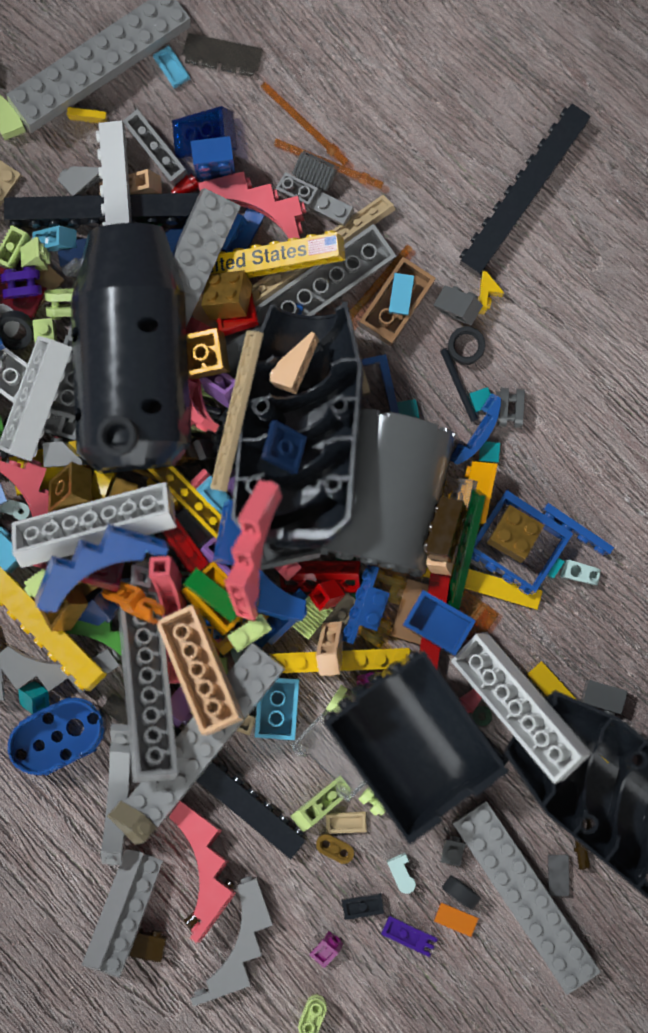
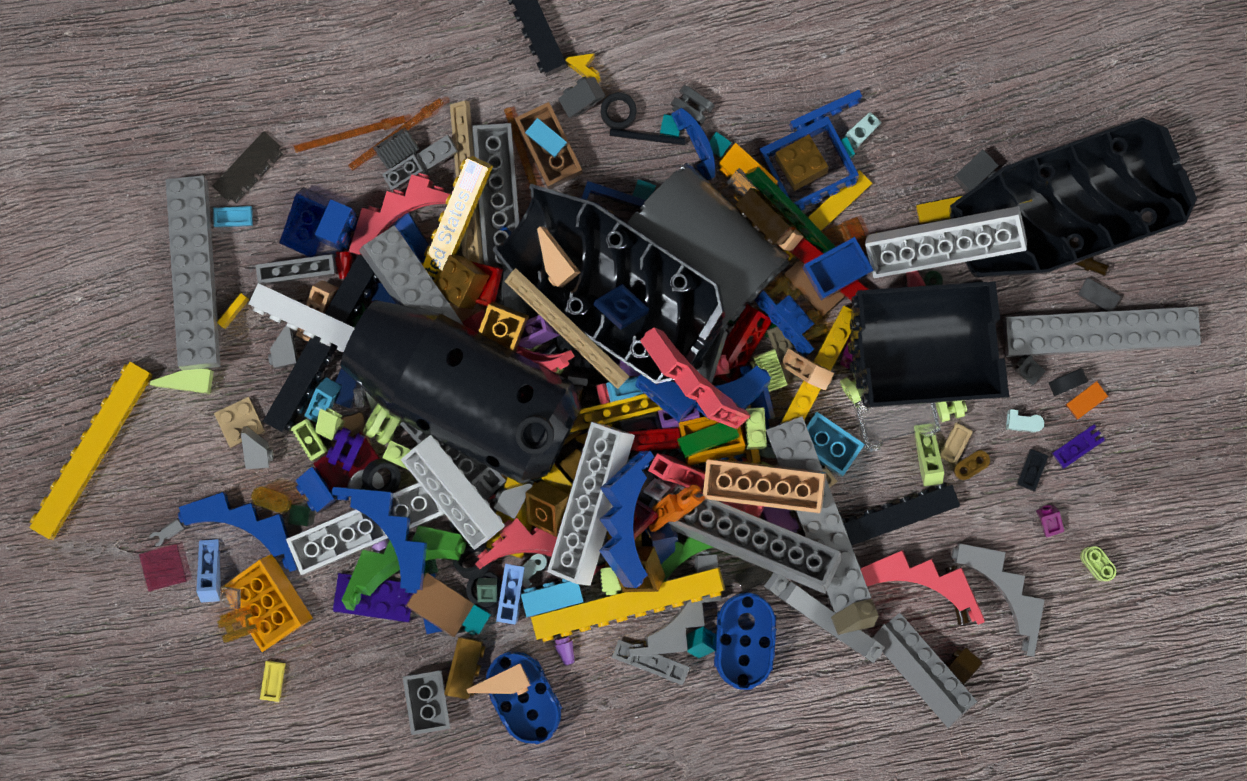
camera: 60 degrees left, 0 degrees up
(326, 595) = (760, 347): red brick -> none

